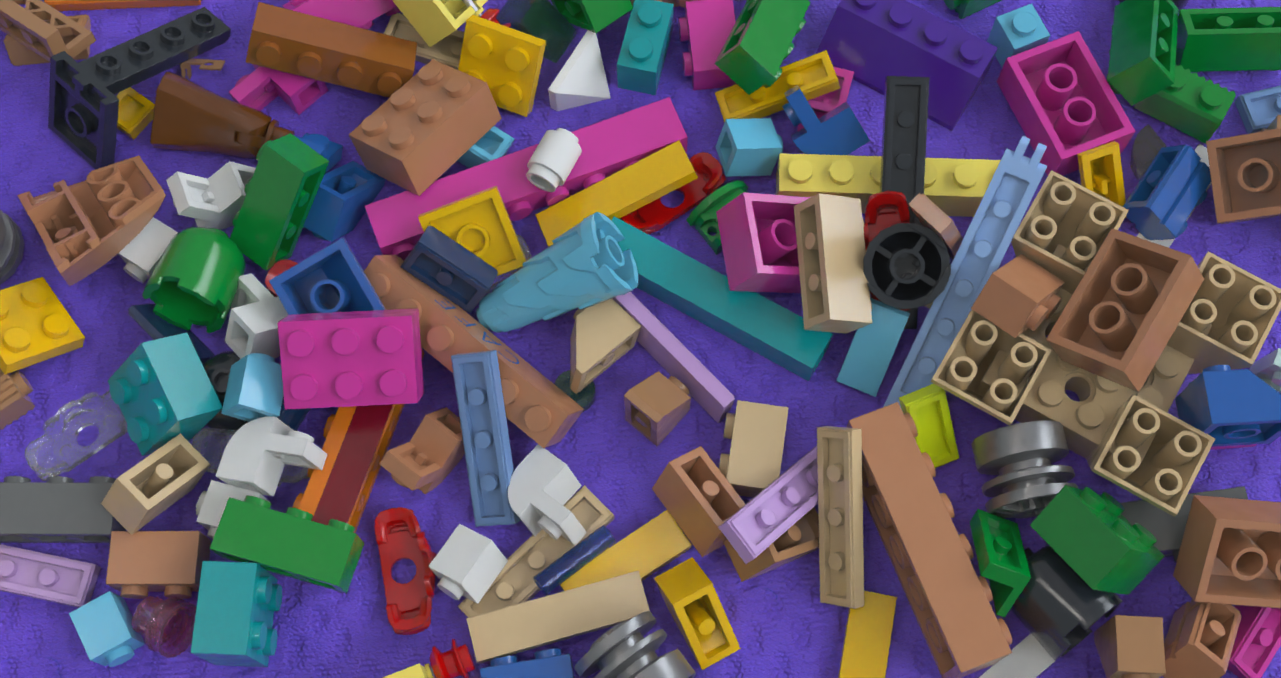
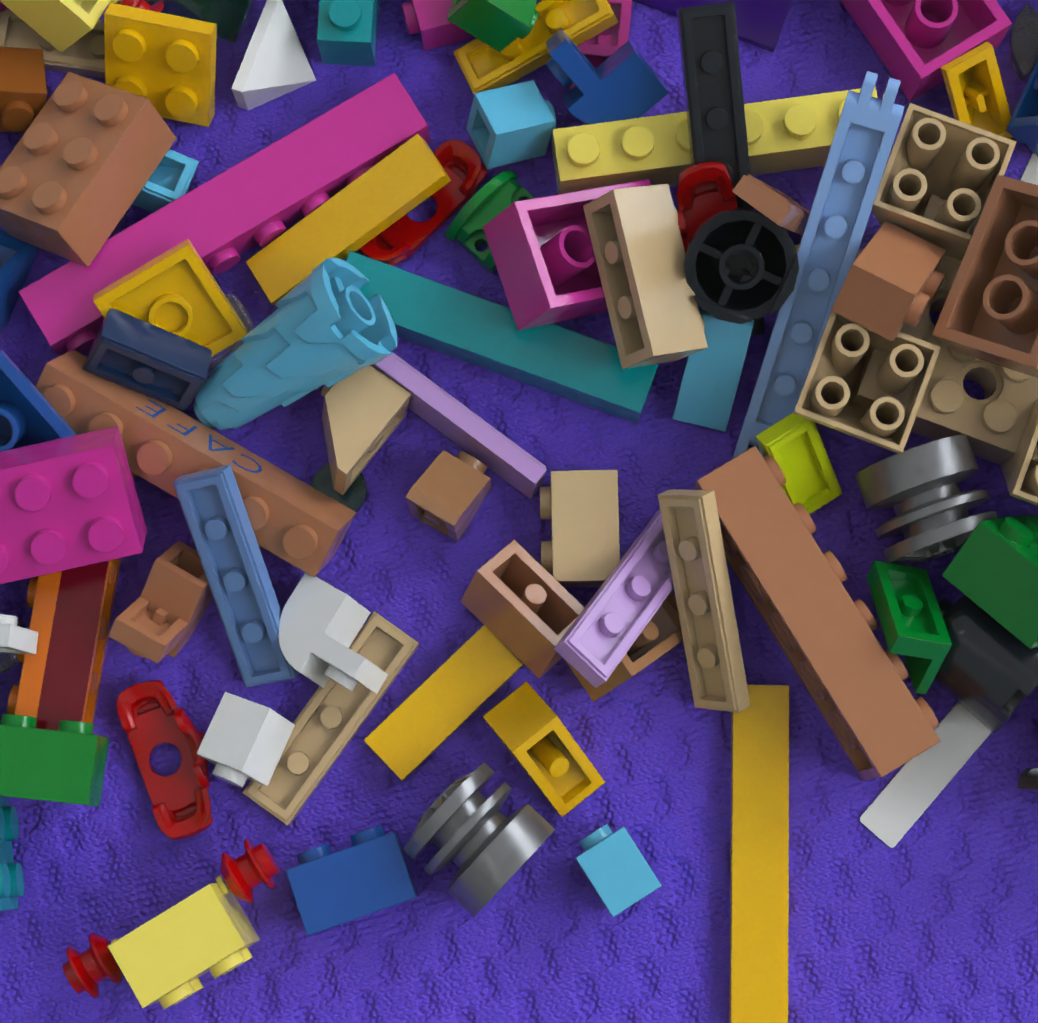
camera: 10 degrees left, 10 degrees up
(553, 159) = (257, 189): white brick -> none
(557, 617) = (371, 786): tan tile -> none
(574, 560) = (378, 710): clear blue piece -> none

